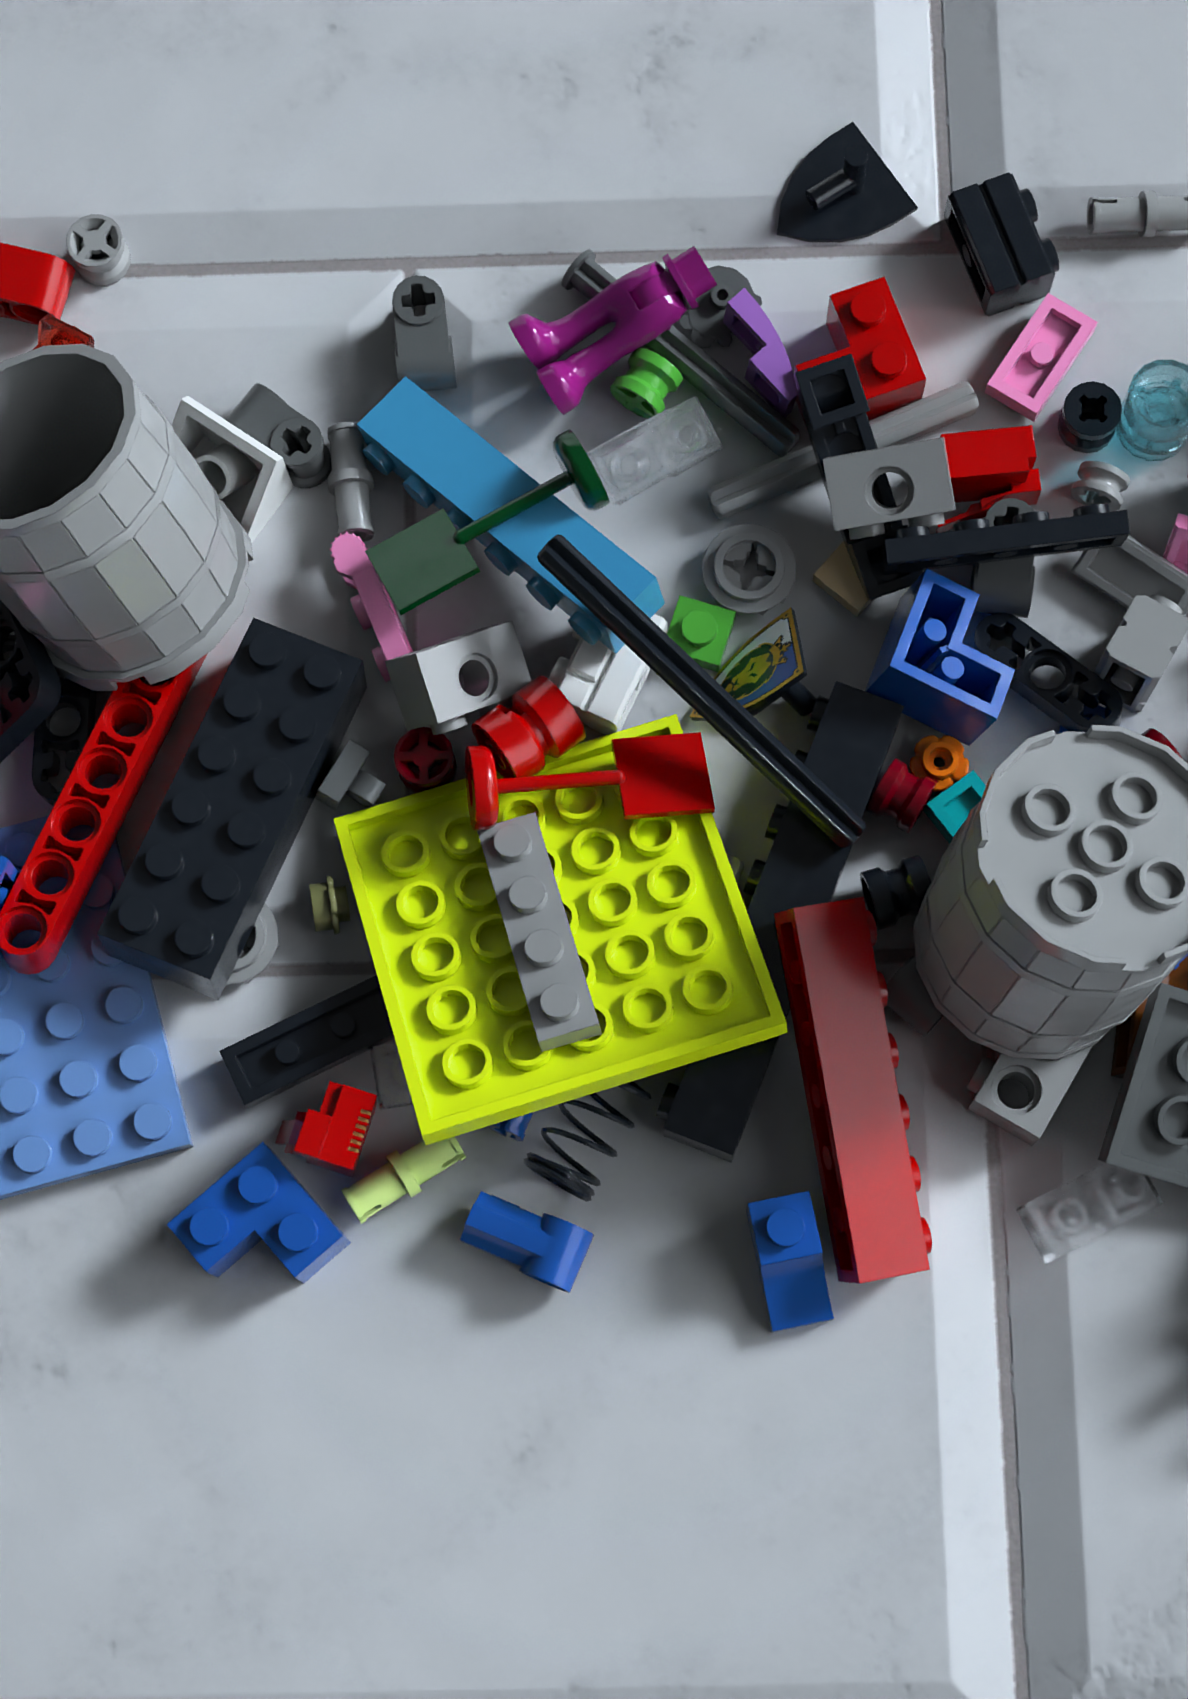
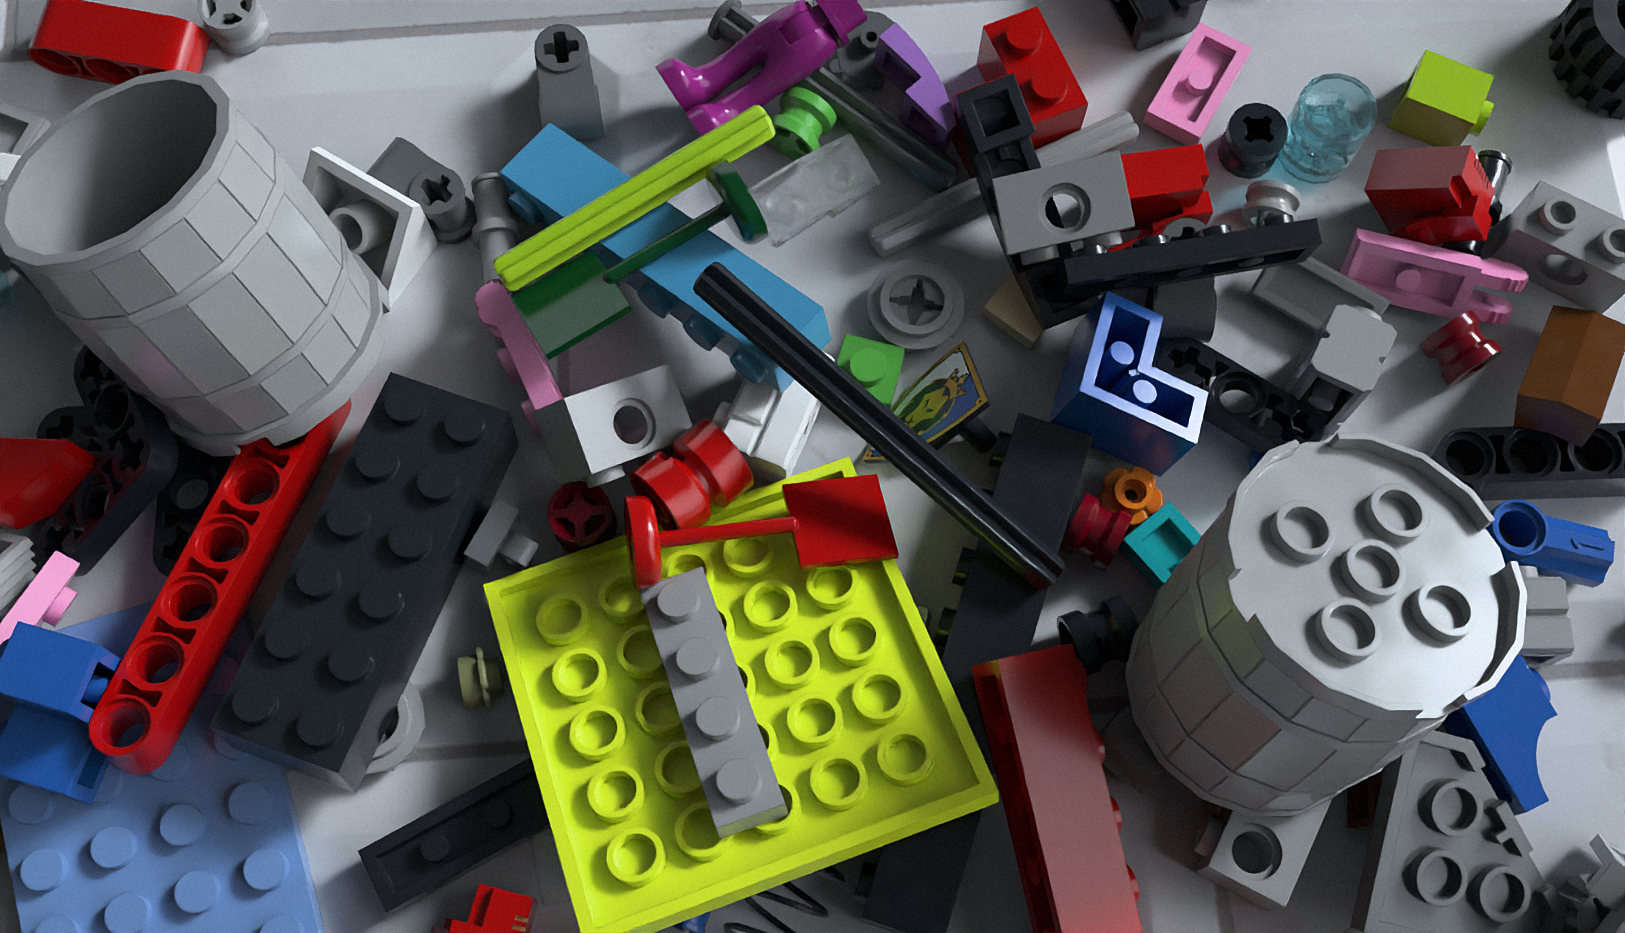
camera: 10 degrees left, 5 degrees down
(485, 461) = (632, 198): none -> lime axle

